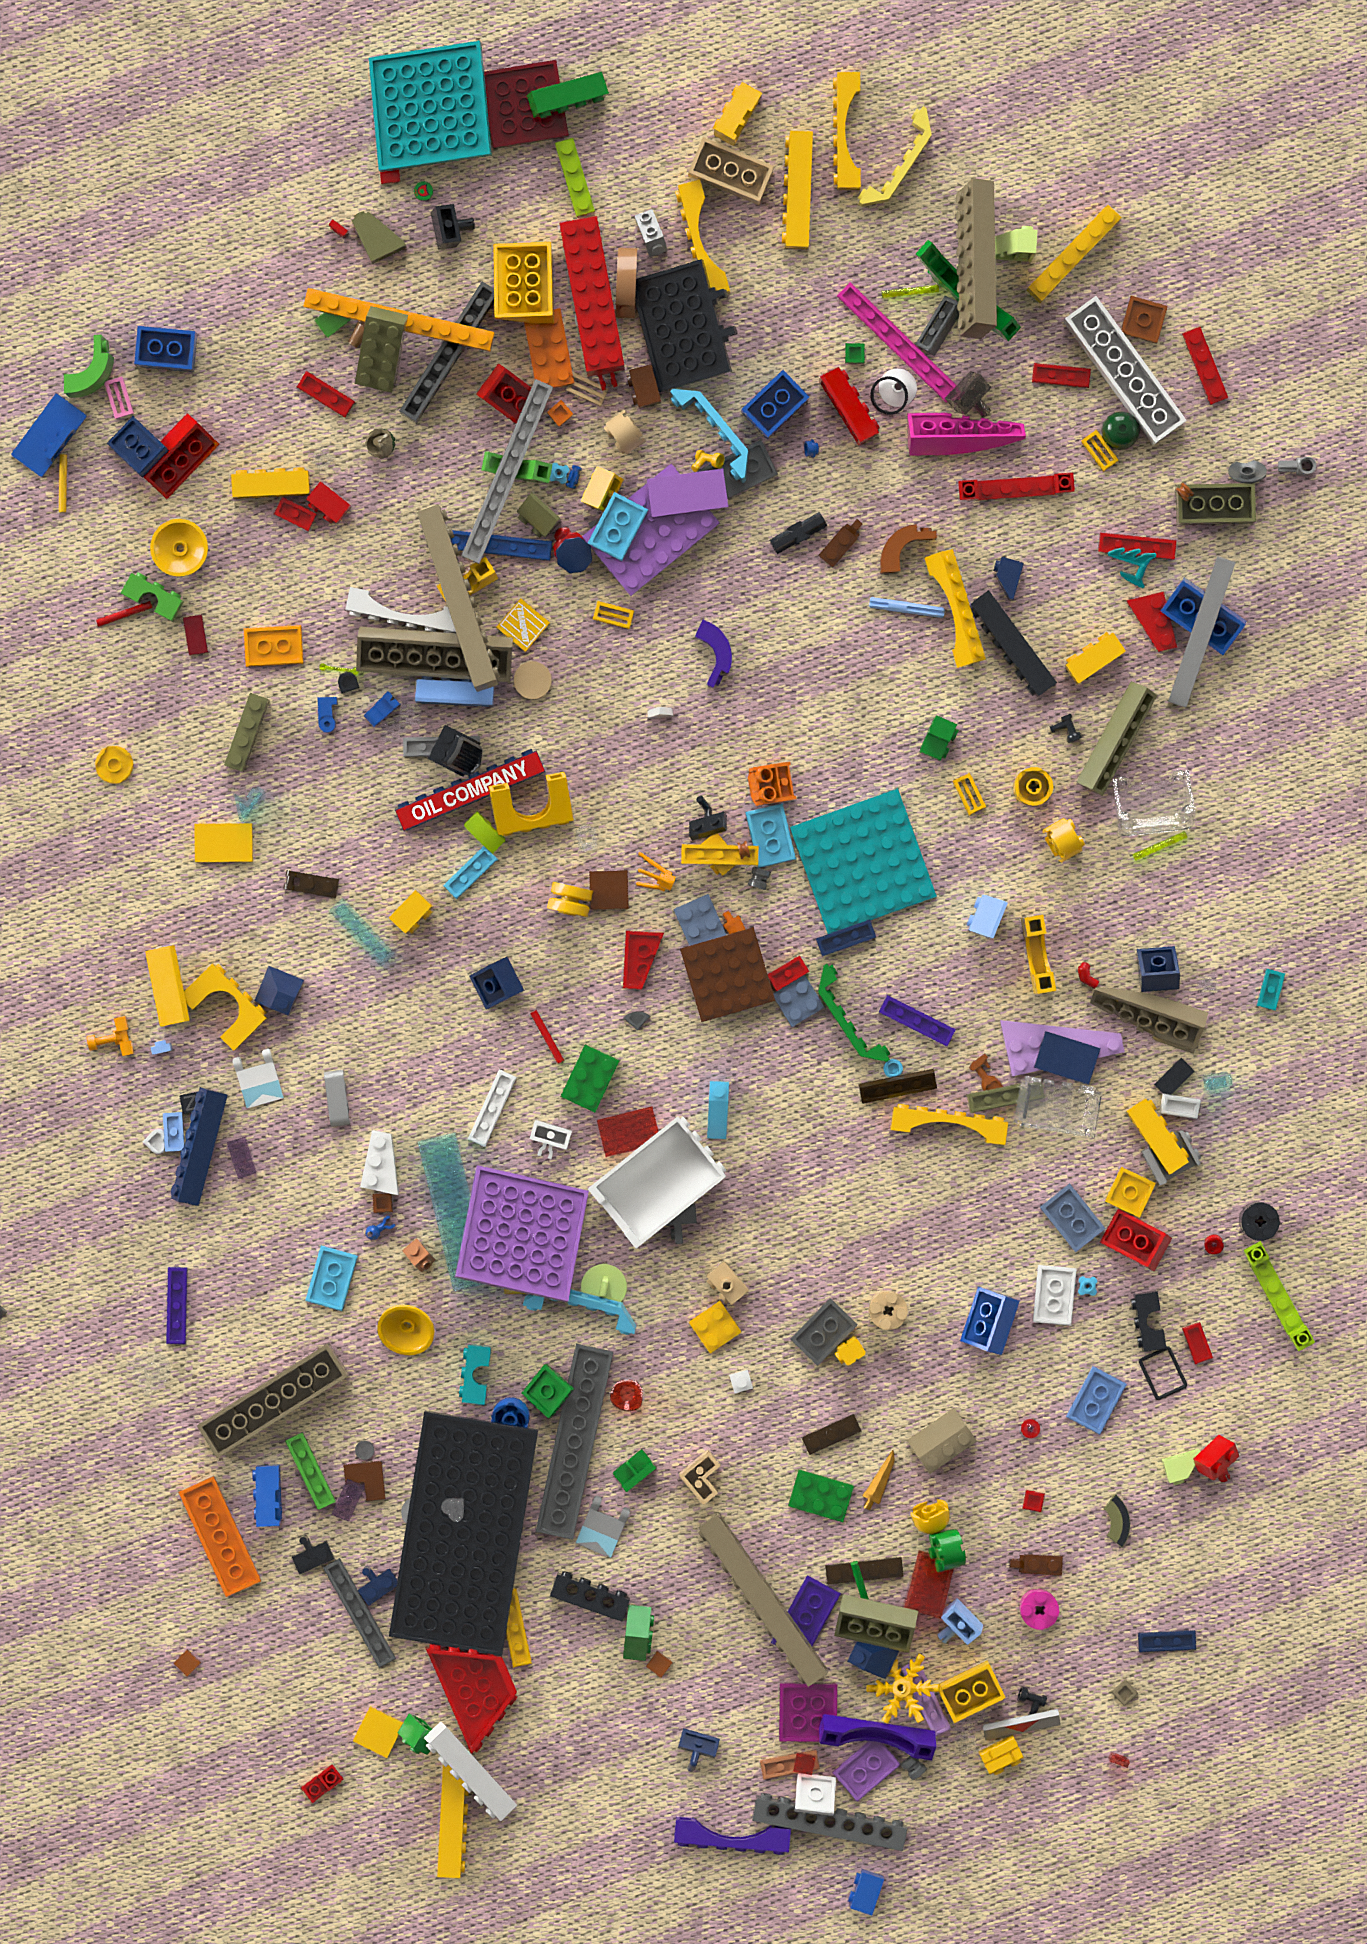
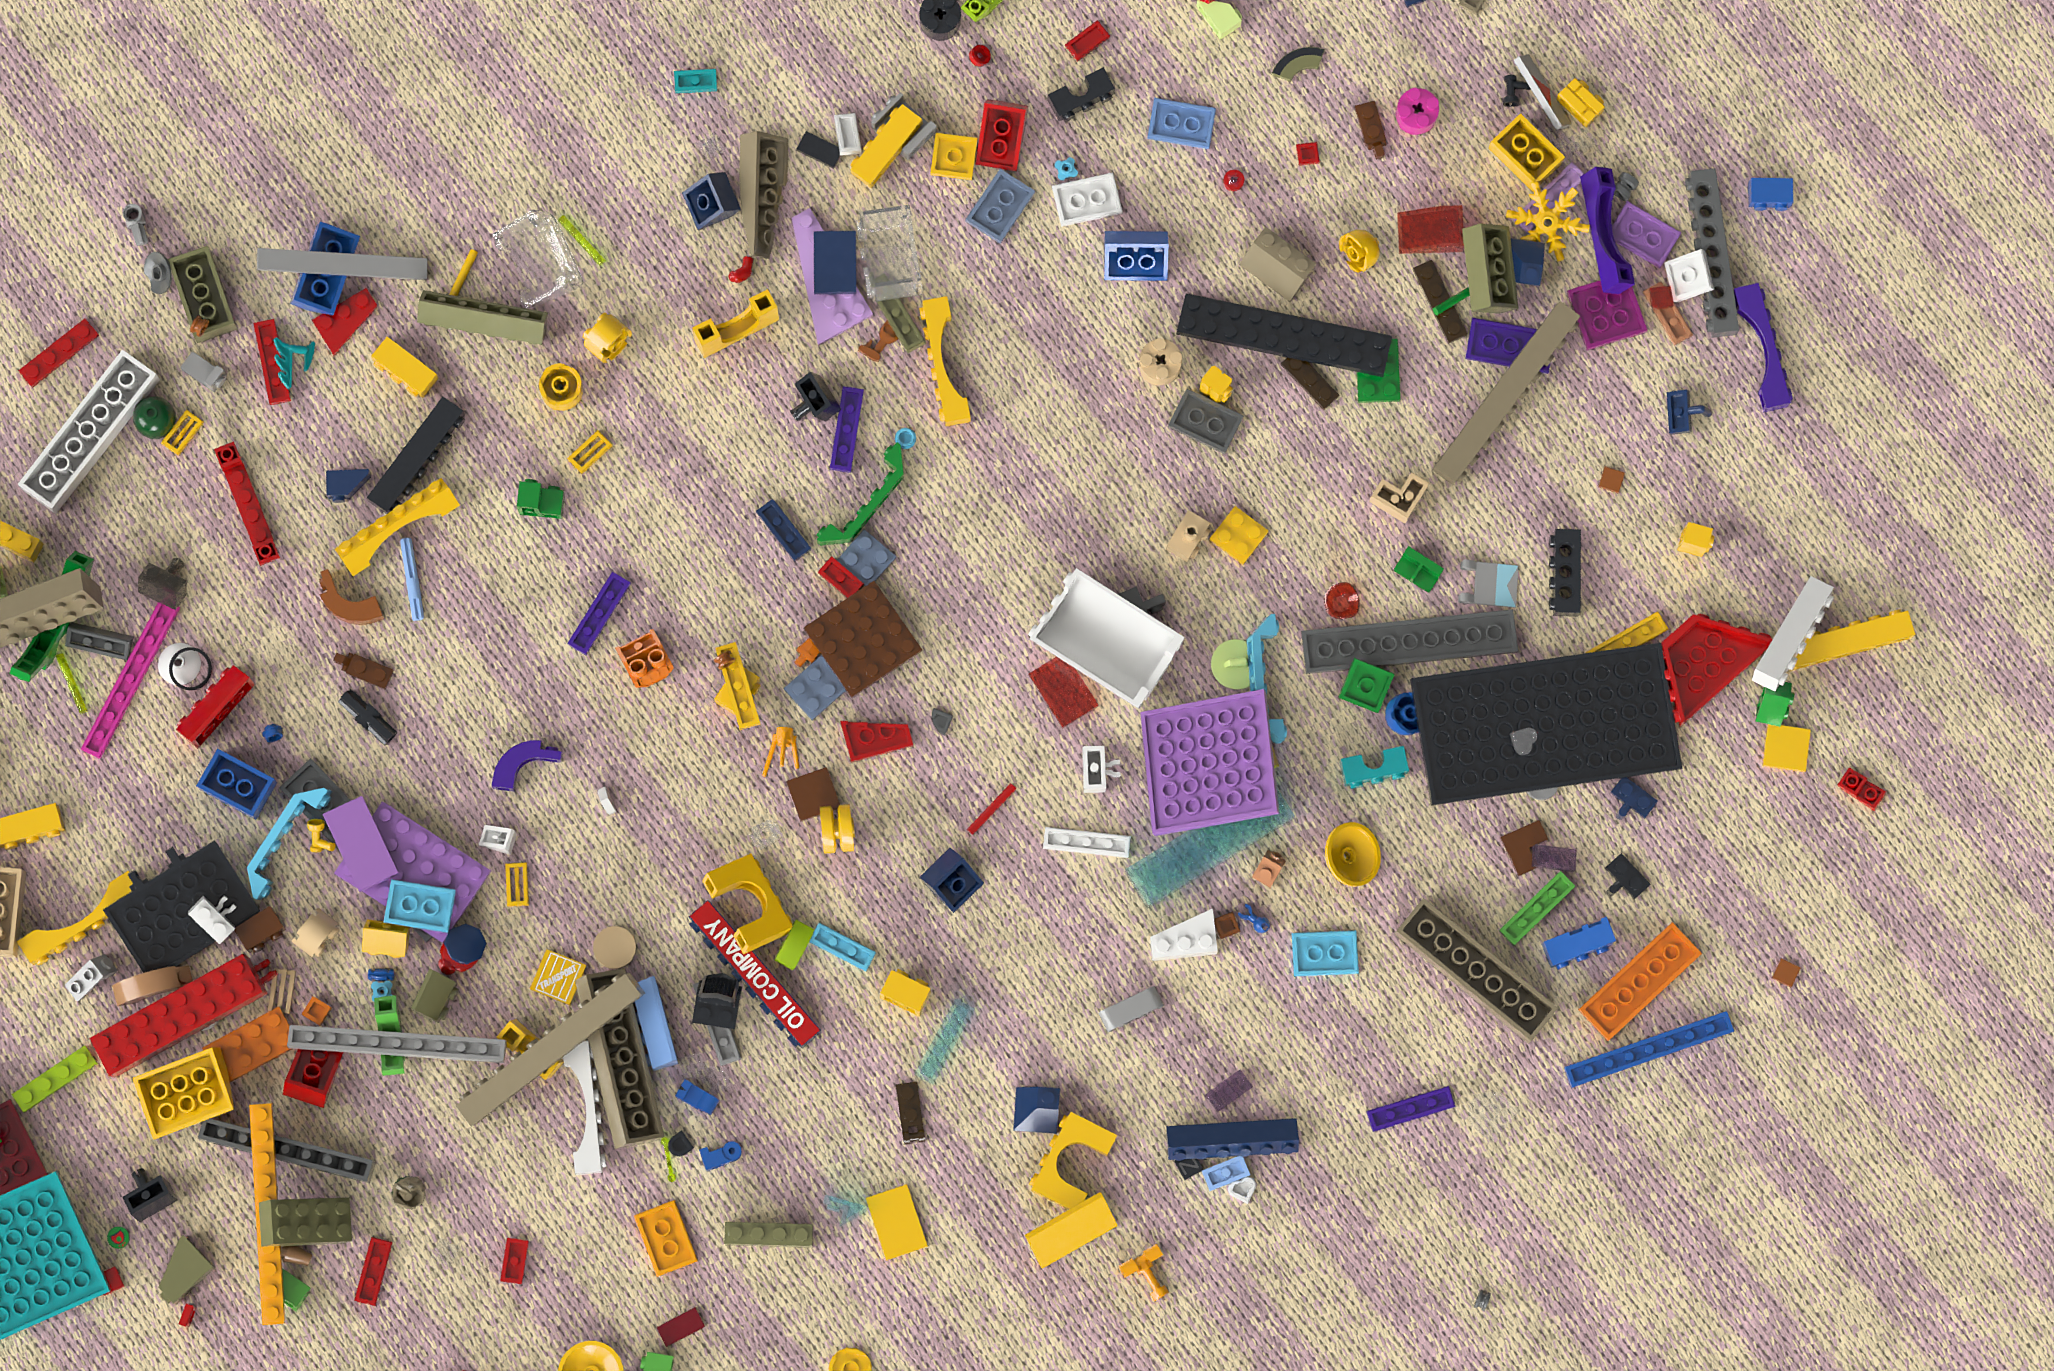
camera: 115 degrees left, 10 degrees down
(160, 1523) = (1649, 1049): none -> blue plate
(161, 1047) = (1139, 1215): light blue plate -> none
(259, 1082) = (1142, 1098): white flag -> none
(270, 484) = (490, 1298): yellow brick -> none
(328, 502) = (491, 1228): red brick -> none
(359, 1612) = (1668, 808): dark grey tile -> none
(364, 1450) = (1495, 859): flat silver piece -> none
(509, 546) = (477, 1017): blue tile -> none
(580, 1717) = (1696, 539): none -> yellow brick
(590, 1078) = (1020, 748): green brick -> none
(637, 1635) = (1586, 509): brick -> none
(657, 610) = (498, 838): none -> white slope
(664, 348) = (212, 919): none -> white brick
(709, 824) = (709, 710): black plate -> none
(718, 1109) = (1008, 604): medium azure slope -> none
(741, 1381) = (1287, 490): white plate -> none
(759, 878) = (749, 640): dark grey wheel -> none
(771, 833) = (696, 644): medium azure tile -> none
(824, 757) = (599, 613): none -> dark purple plate
(855, 353) = (156, 719): green plate -> none
(863, 861) = (696, 539): teal plate -> none
(877, 1425) = (1284, 335): none -> black plate
(877, 1486) = (1349, 316): pearl gold bar -> none
(897, 1086) = (922, 427): dark brown plate -> none
(946, 435) = (215, 595): dark pink wedge -> none
(947, 1550) = (1389, 221): green brick -> none
(950, 1002) = (816, 398): none -> black brick
(959, 1622) = (1459, 185): light blue brick -> none
(987, 916) = (713, 388): light blue slope -> none
(1061, 375) = (114, 497): red tile -> none
(1067, 723) = (482, 374): black piece -> none
(1143, 319) = (28, 430): dark orange plate -> none
(1147, 485) = (204, 372): none -> light grey bracket
(1149, 1380) = (1143, 76): black piece -> none
(1161, 733) = (463, 272): none -> yellow bar
(1217, 1082) = (810, 104): clear light blue slope -> none

